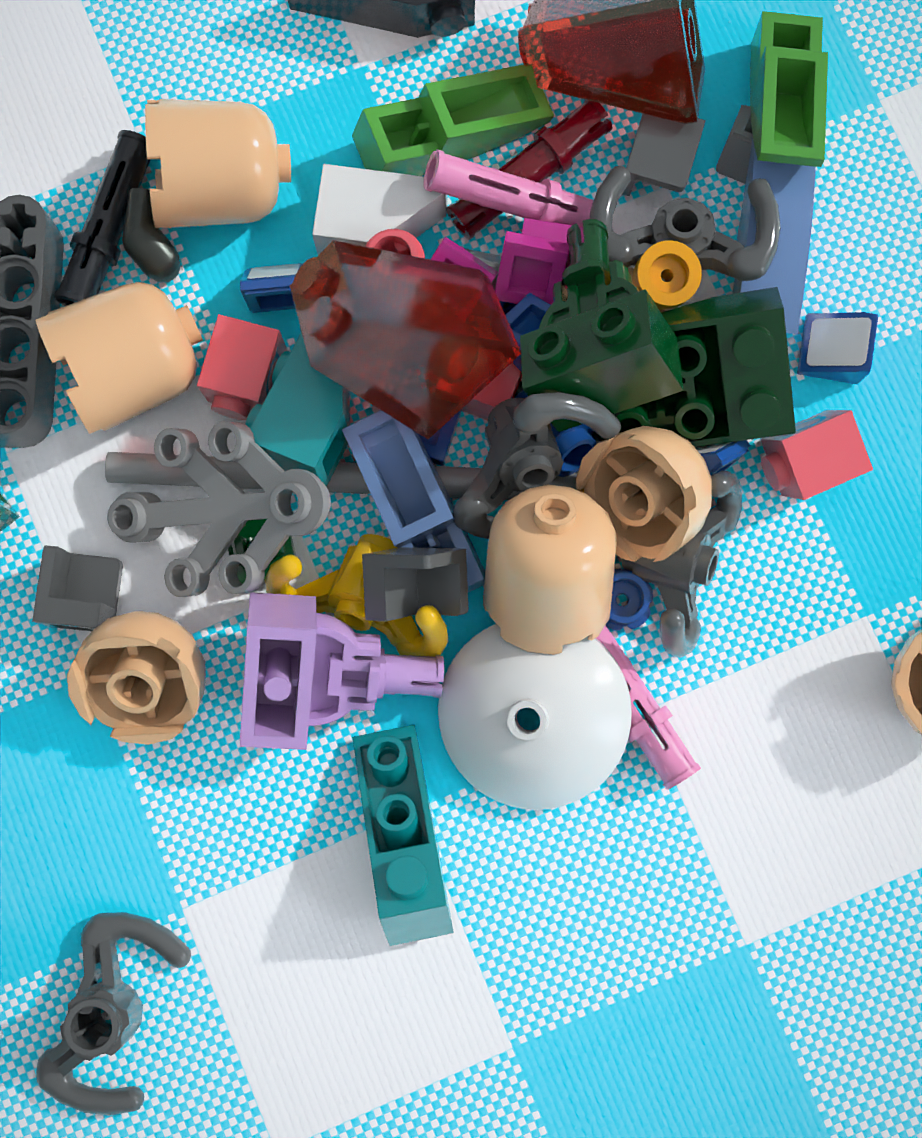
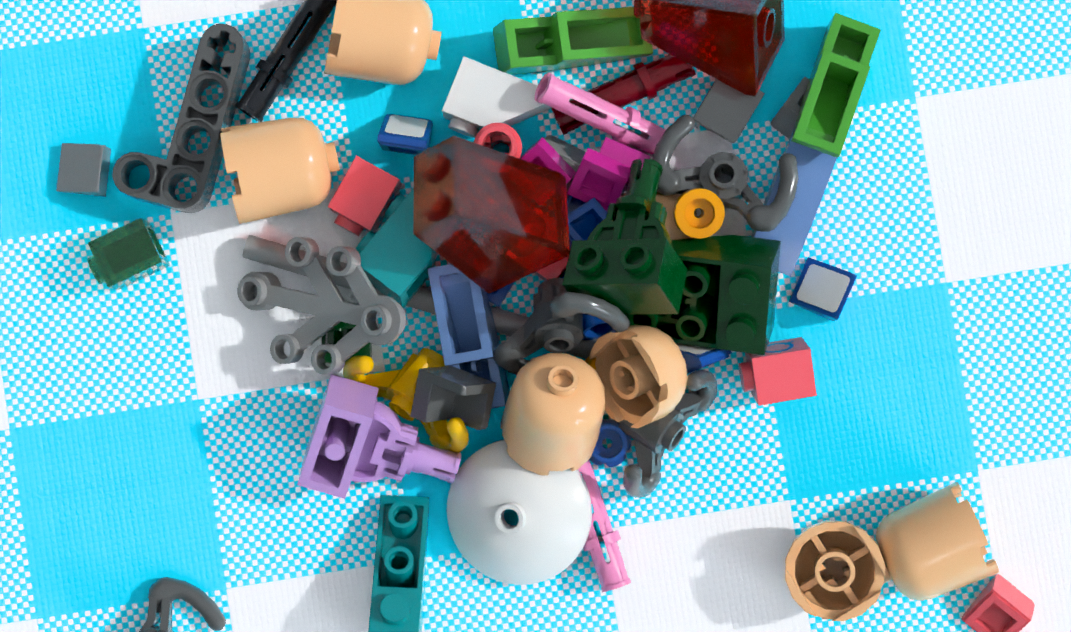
camera: 15 degrees right, 5 degrees up
(76, 589) = (203, 336): dark grey panel -> none
(138, 677) = (235, 415): light nougat cylinder -> none
(144, 242) = (312, 81): pearl dark grey arm -> none

